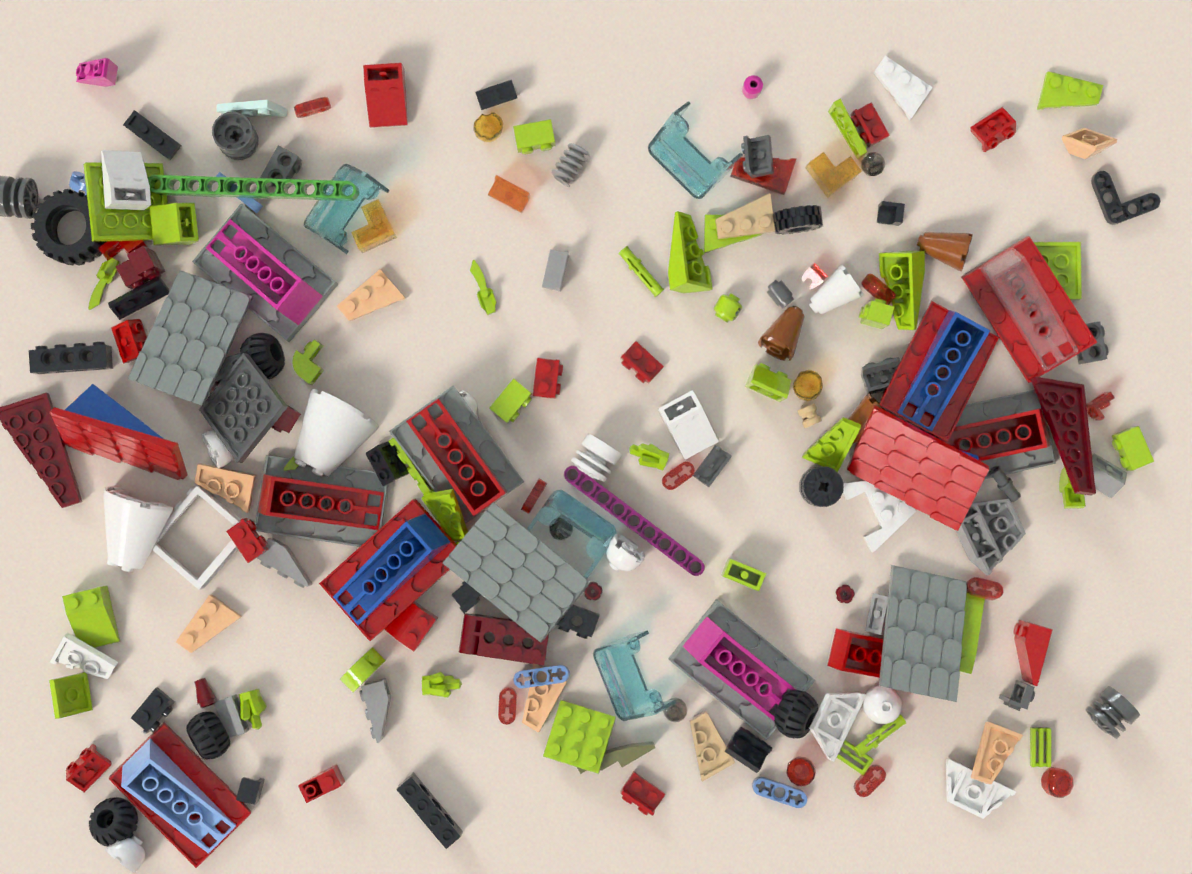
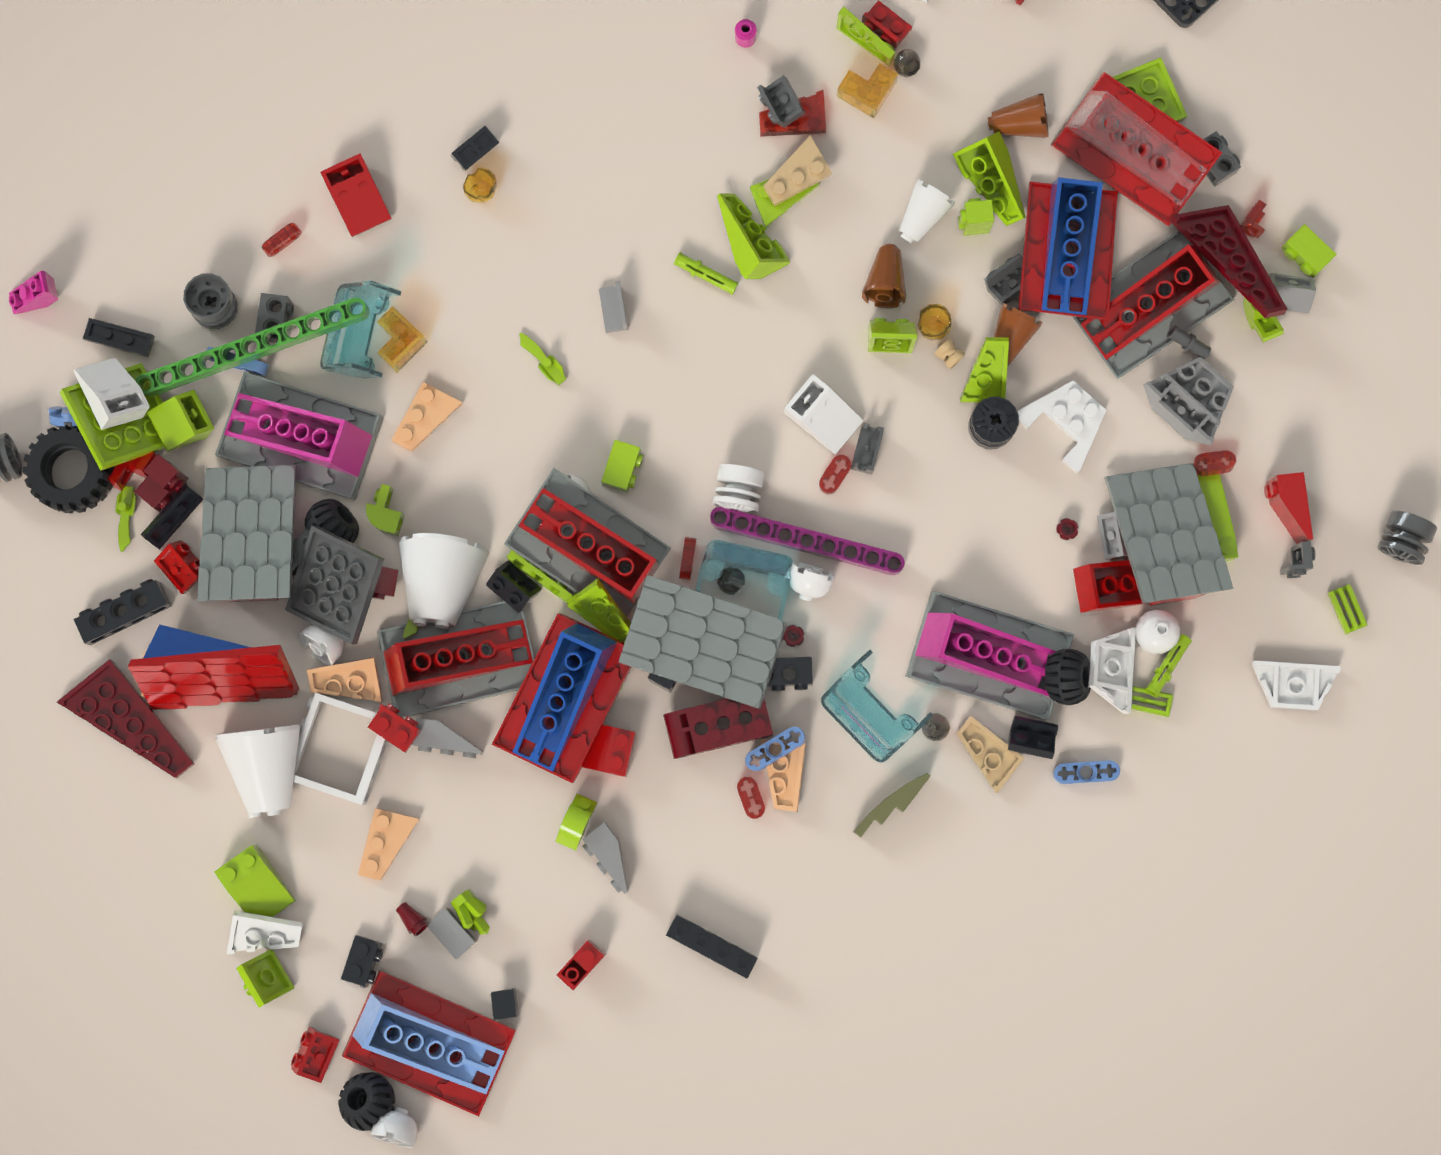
camera: 20 degrees left, 5 degrees down
(208, 735) = (434, 963): black wheel -> none
(253, 108) = (219, 264): light aqua wing -> none
(439, 684) = (667, 804): lime rock -> none
(464, 599) = (657, 698): black panel -> none
(509, 194) = (531, 247): clear orange panel -> none
(534, 136) = (534, 176): lime brick -> none
(546, 378) = (650, 427): red bracket -> none
(569, 163) = (582, 189): light grey piece -> none
(579, 737) = (843, 797): lime plate -> none
(641, 362) = (746, 370): red bracket -> none
(642, 794) = (937, 833): red bracket -> none
(650, 455) = (796, 464): lime rock -> none
(684, 160) = (704, 138): clear light blue windscreen -> none
(728, 307) = (815, 274): lime head -> none
(743, 574) = (949, 550): lime brick -> none
(780, 293) = (864, 237): dark grey brick -> none
(797, 219) = (851, 151): black bush -> none
(801, 771) = (1099, 738): clear red hair -> none
(815, 274) = (895, 202): clear red tile -> none
(873, 784) = (1183, 722): clear red beam -> none
(878, 288) = (966, 190): clear red beam -> none
(890, 213) = (947, 107): black panel -> none
(917, 468) = (1086, 358): piece -> none
(993, 751) = (1298, 631): light nougat wing -> none
(1057, 782) = (1381, 639): clear red hair -> none

